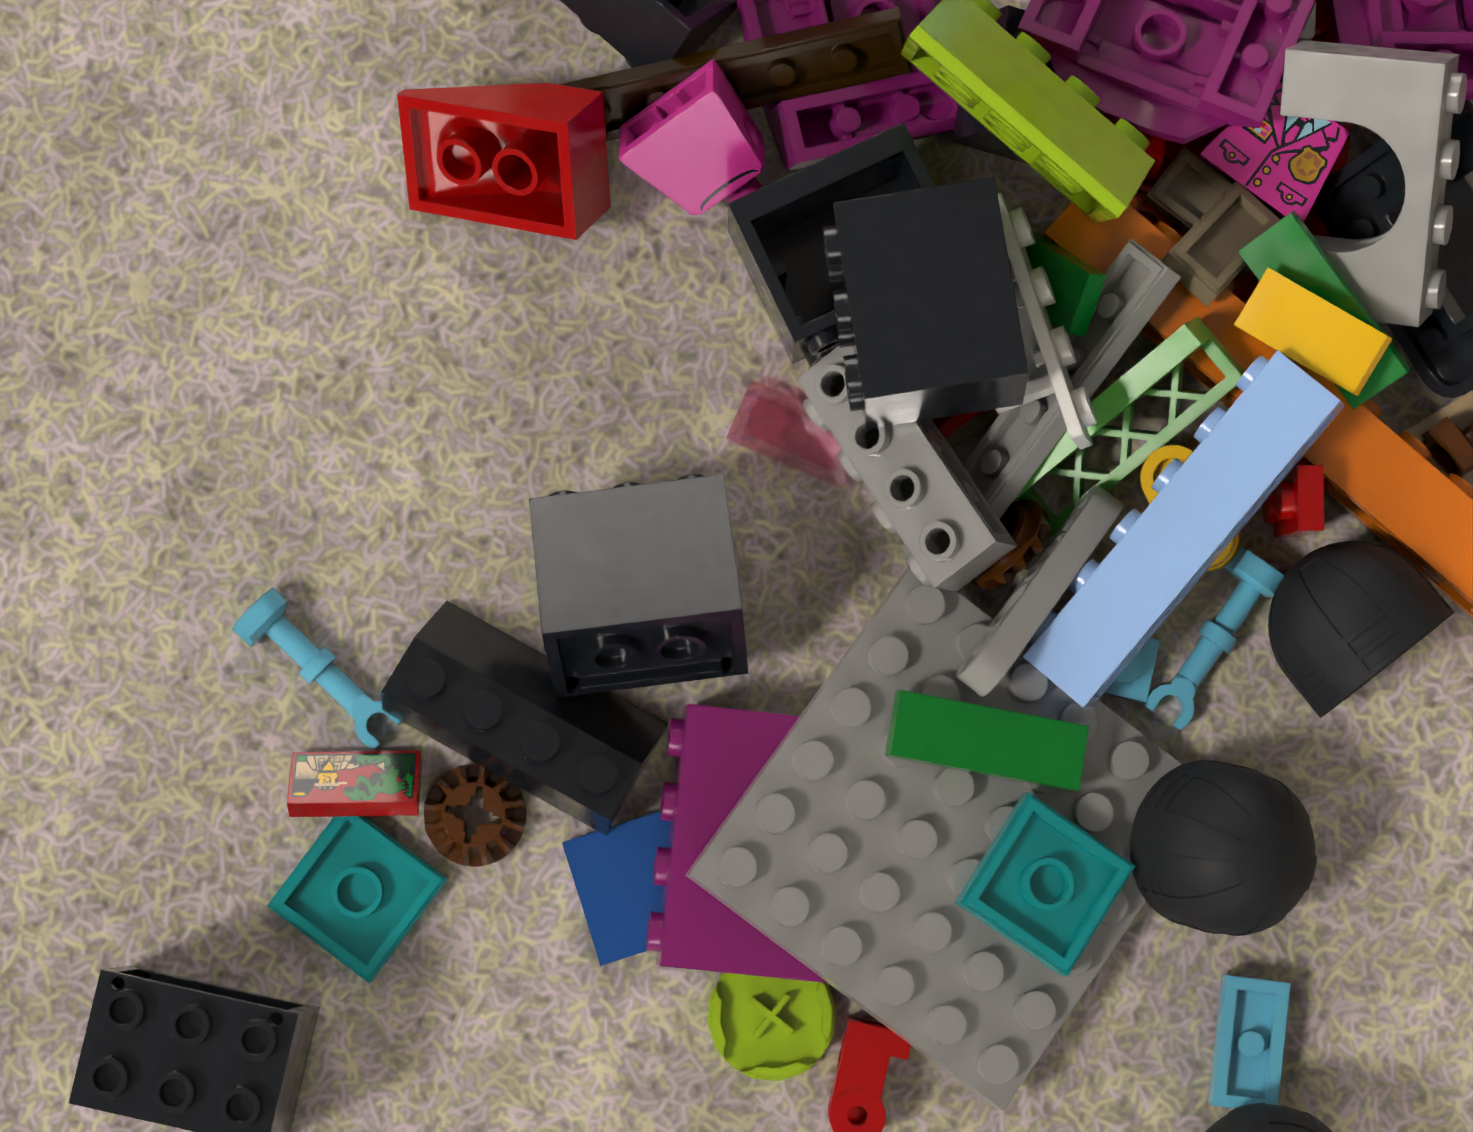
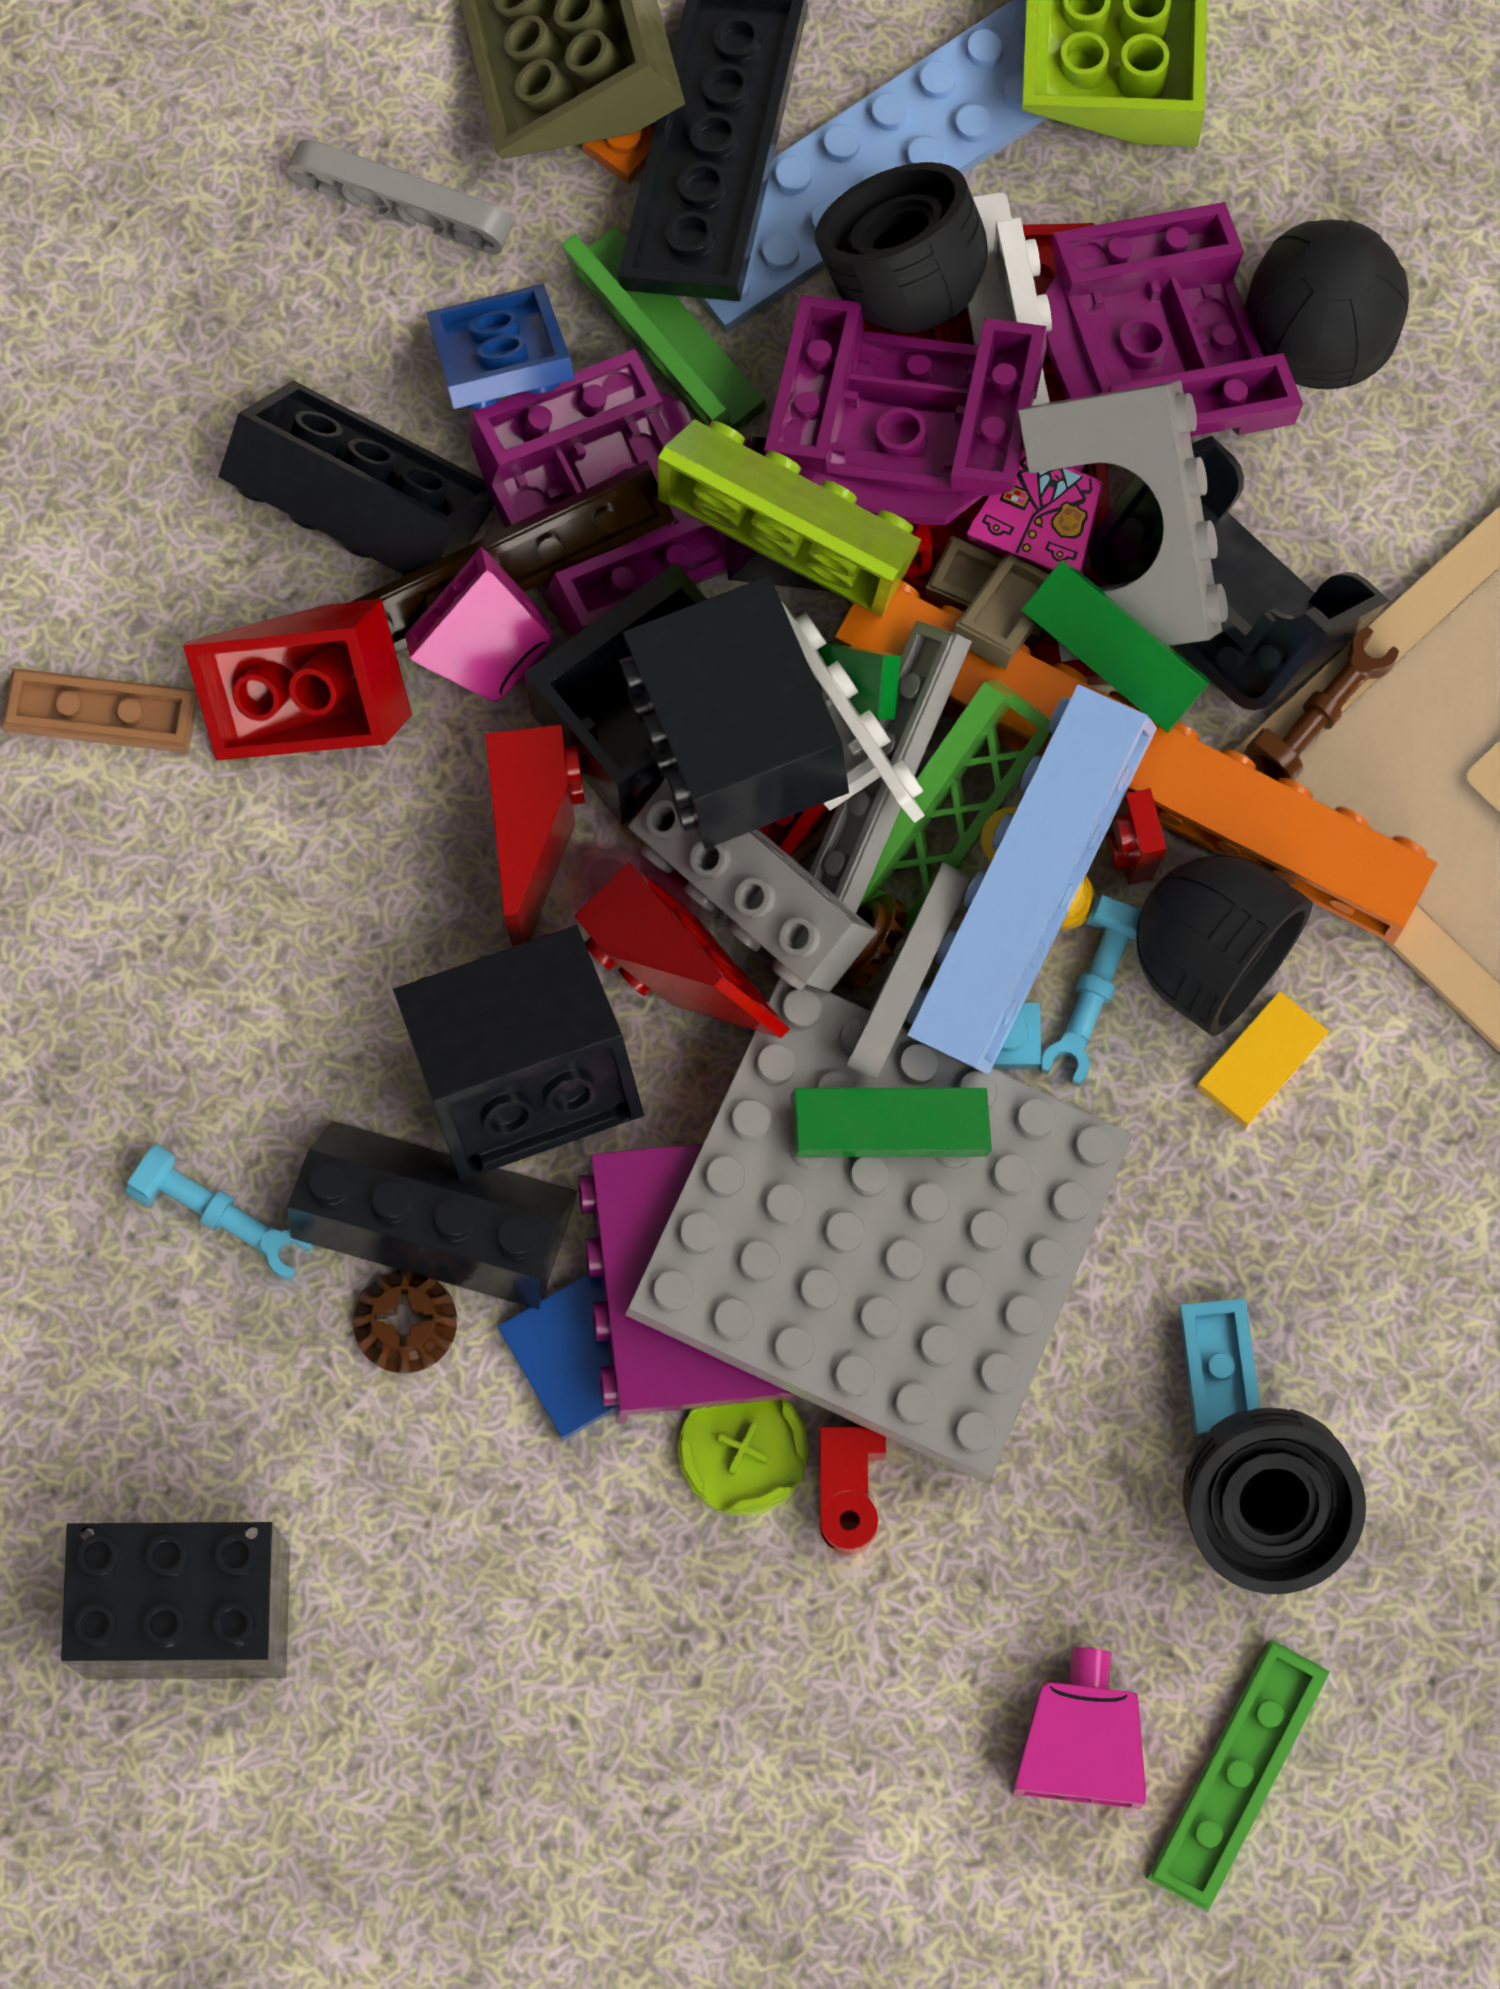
camera: 10 degrees left, 10 degrees down
(306, 133) = (100, 710): none -> medium nougat tile
(354, 783) = (279, 1314): tile -> none
(357, 893) = (304, 1422): teal tile -> none
(706, 341) = (533, 811): none -> red slope
(812, 514) = (671, 953): none -> red slope
(1045, 884) = (980, 1248): teal tile -> none
(1222, 848) = (1144, 1178): black piece -> none
(1313, 331) = (1109, 663): yellow slope -> none
(1364, 745) = (1262, 1059): none -> yellow tile

